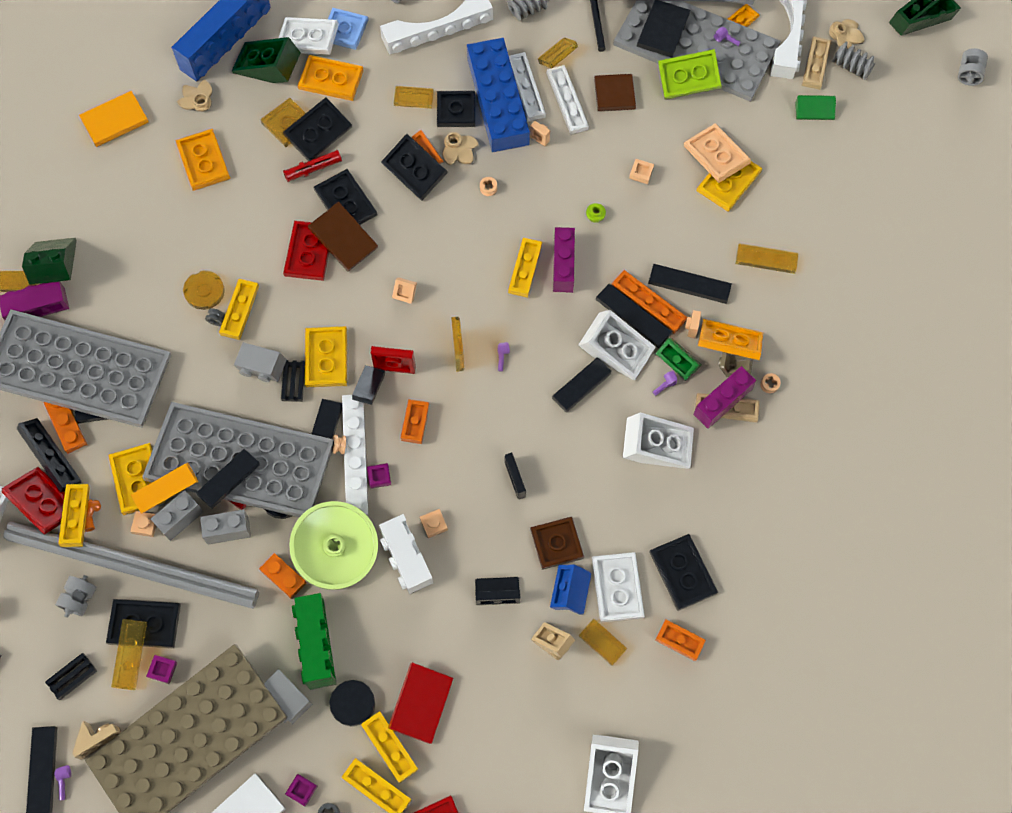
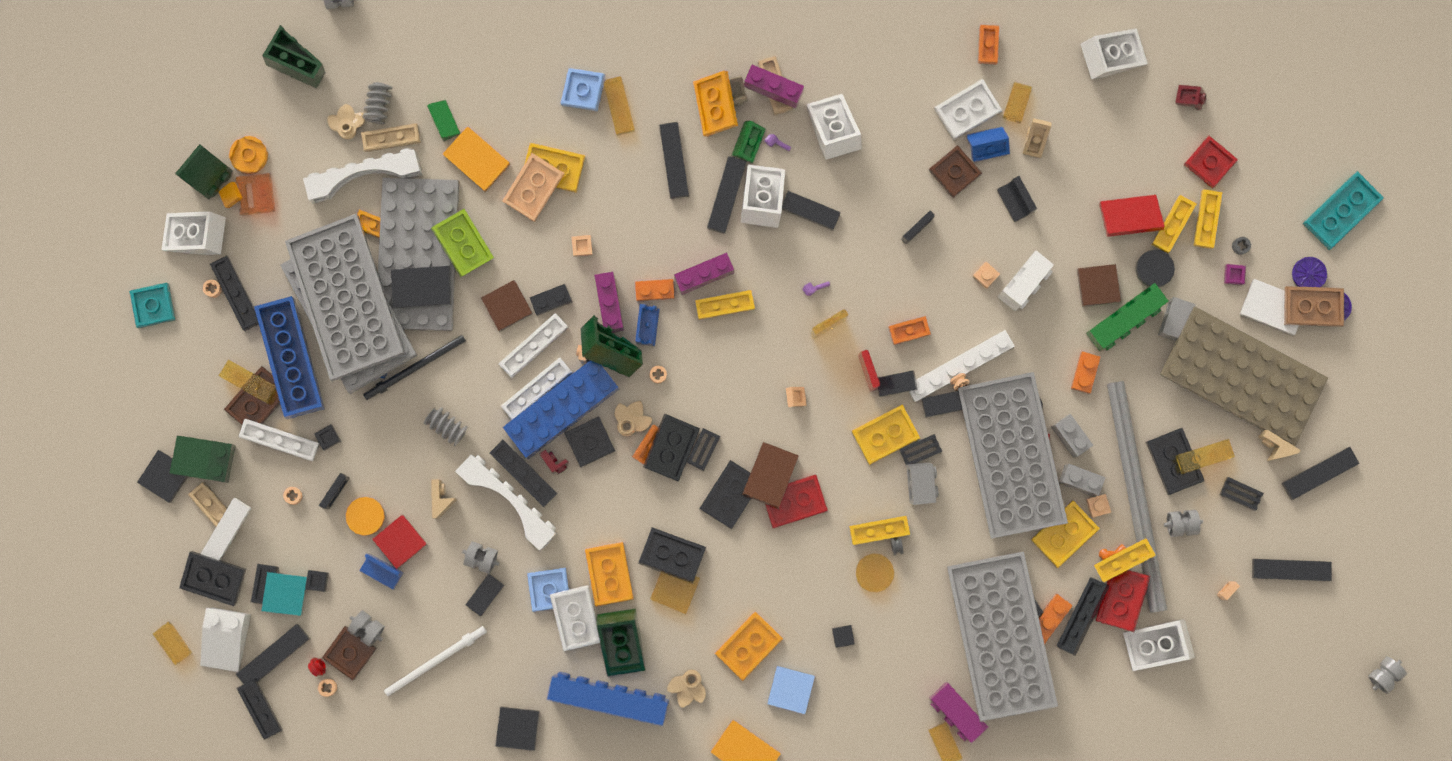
camera: 115 degrees left, 15 degrees up
(49, 261) = (914, 719): dark green slope -> none
(60, 774) = (1311, 457): medium lavender hand -> none
(143, 176) = (791, 689): none -> light blue tile
(161, 669) = (1203, 425): magenta plate -> none
(163, 238) = (843, 636): none -> black tile
(164, 488) = (1068, 498): light orange tile -> none
(228, 478) = (1036, 451): black tile -> none
(292, 173) = (710, 540): red pin -> none
(333, 545) = (1046, 340): yellowish green dish -> none
(365, 633) = (1099, 285): none -> reddish brown tile
(379, 475) = (967, 338): magenta tile -> none
(408, 206) = (696, 464): none -> black tile
(413, 97) = (595, 486): clear yellow tile -> none
(452, 46) = (523, 473): none -> black plate
(453, 68) = (550, 459): none -> dark red bracket
(530, 144) = (608, 349): none -> dark green wedge
(539, 193) = (647, 325): none -> blue hinge
(557, 52) = (488, 375): clear yellow tile -> none
(570, 212) = (654, 290): none -> orange plate
(575, 169) = (609, 301): none -> magenta brick
(595, 217) = (642, 274): lime plate -> none
(603, 129) = (550, 299): none -> black plate
(649, 301) = (706, 187): orange tile -> none
(683, 572) = (931, 64): black tile -> none
(692, 324) = (714, 141): light nougat plate -> none
(722, 33) = (404, 230): medium lavender hand -> none
(765, 120) = (476, 159): none -> light orange tile
(775, 379) = (733, 63): light nougat bush -> none
(796, 232) = (583, 89): none -> light blue tile

